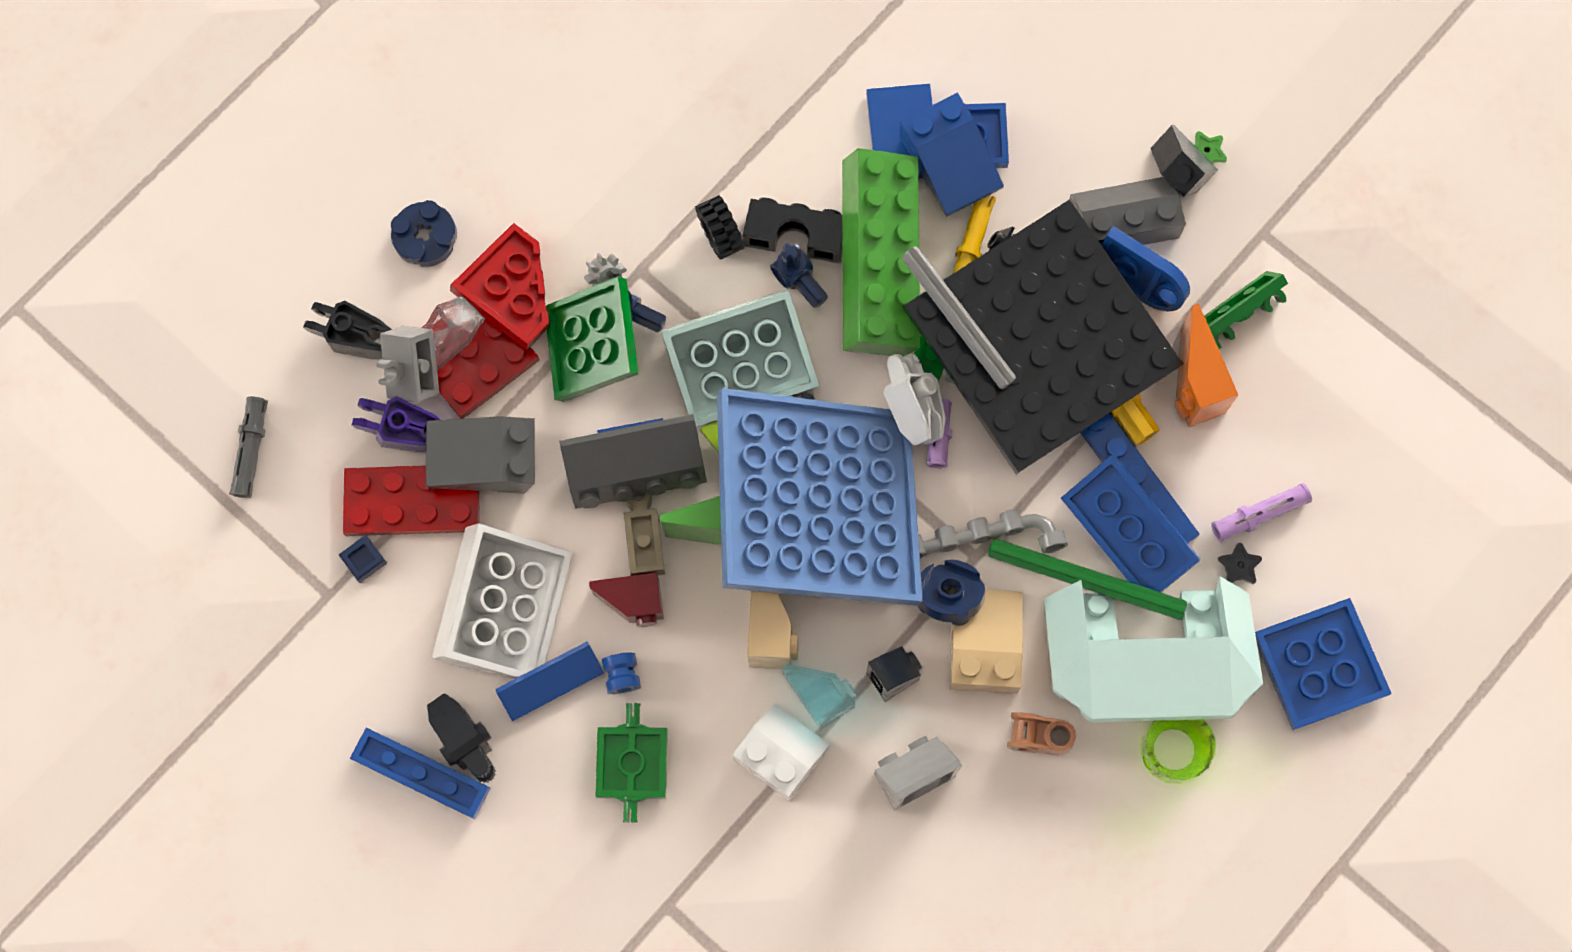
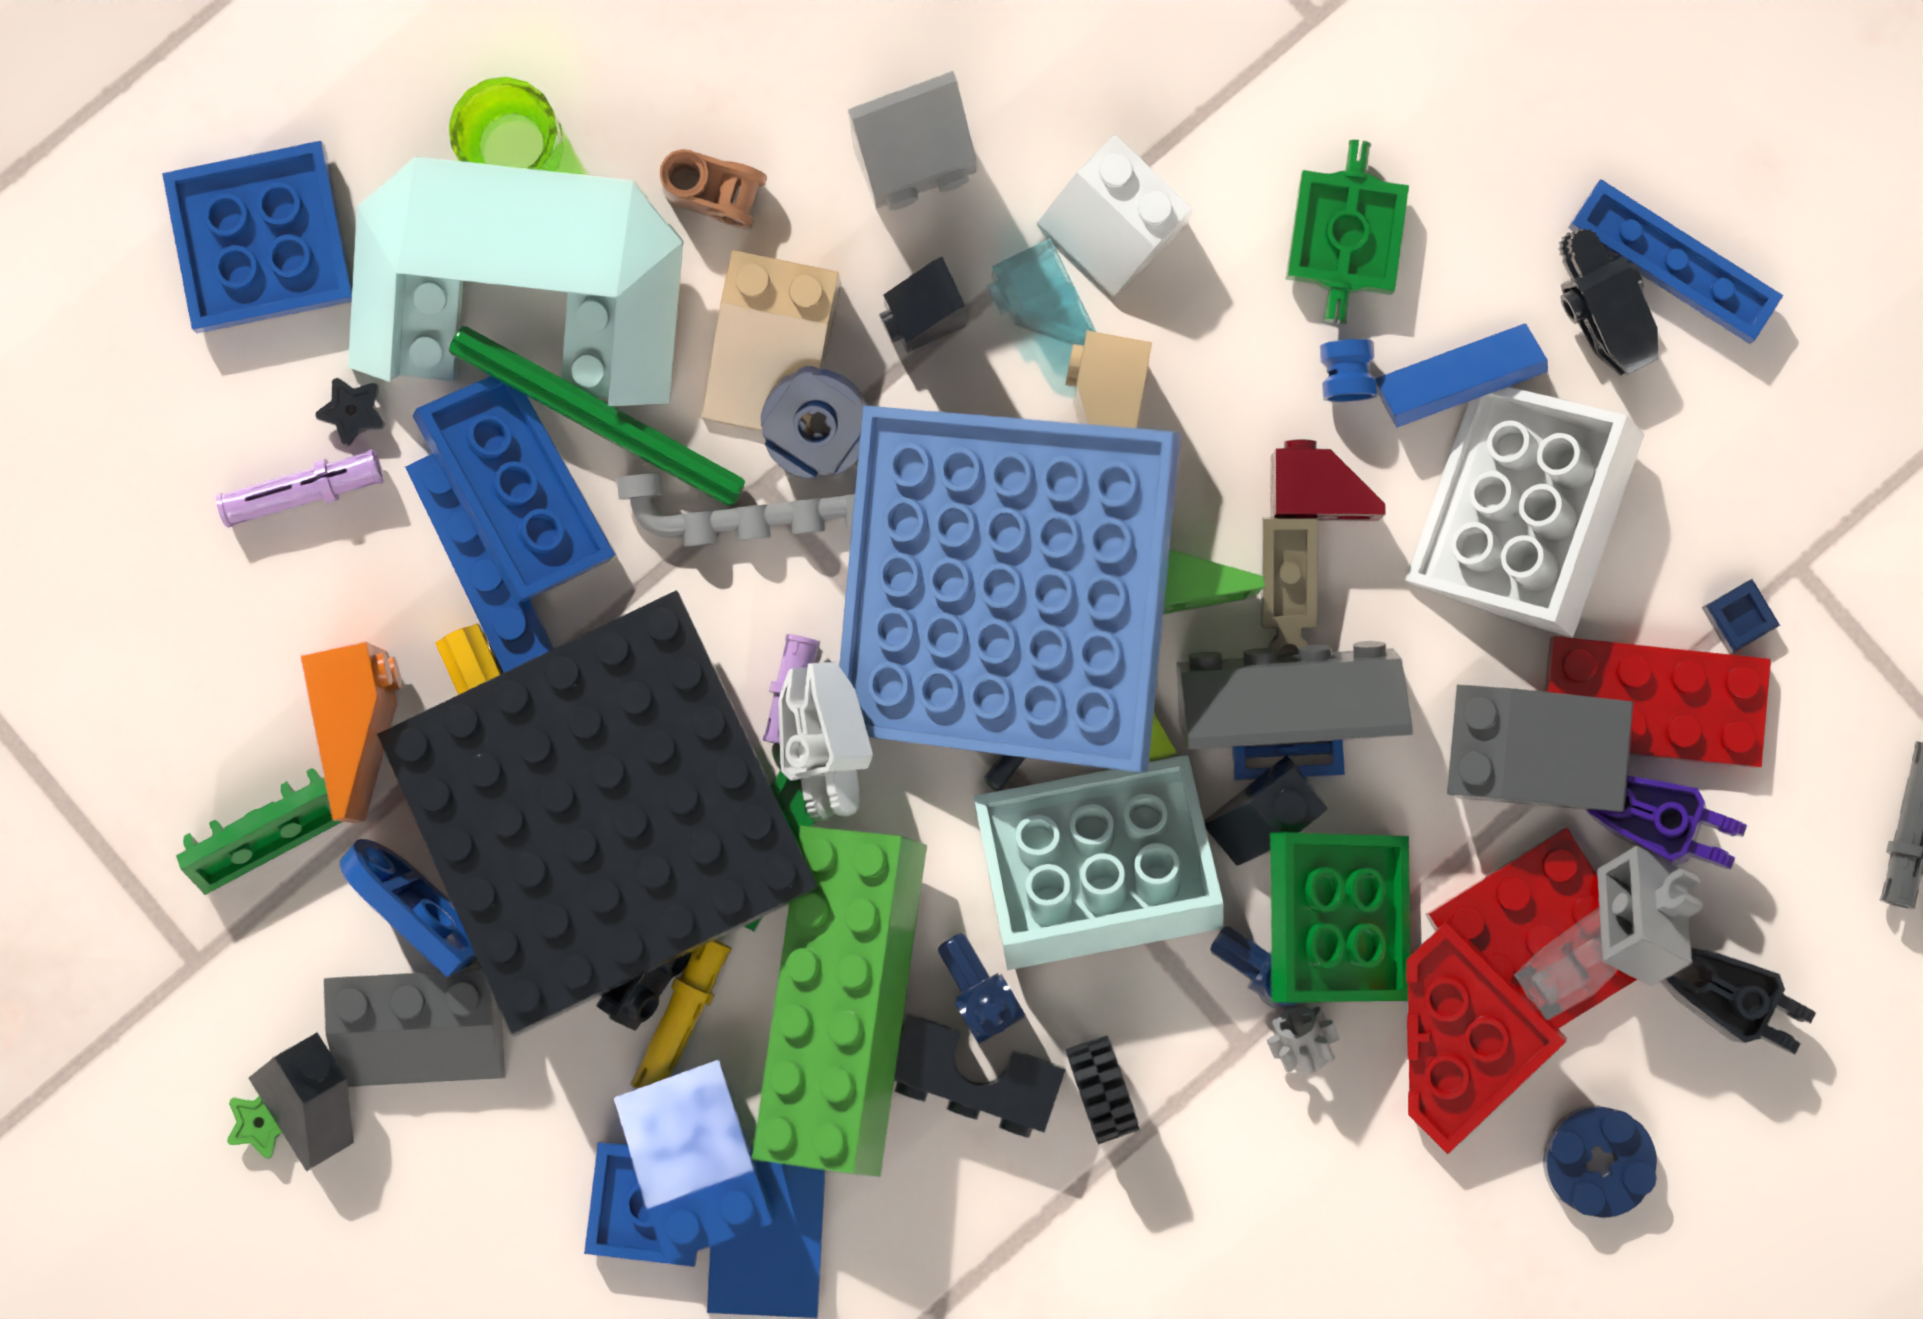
camera: 175 degrees left, 10 degrees up
(640, 398) = (1272, 803): none -> black slope
(958, 317) = (733, 846): light grey axle -> none

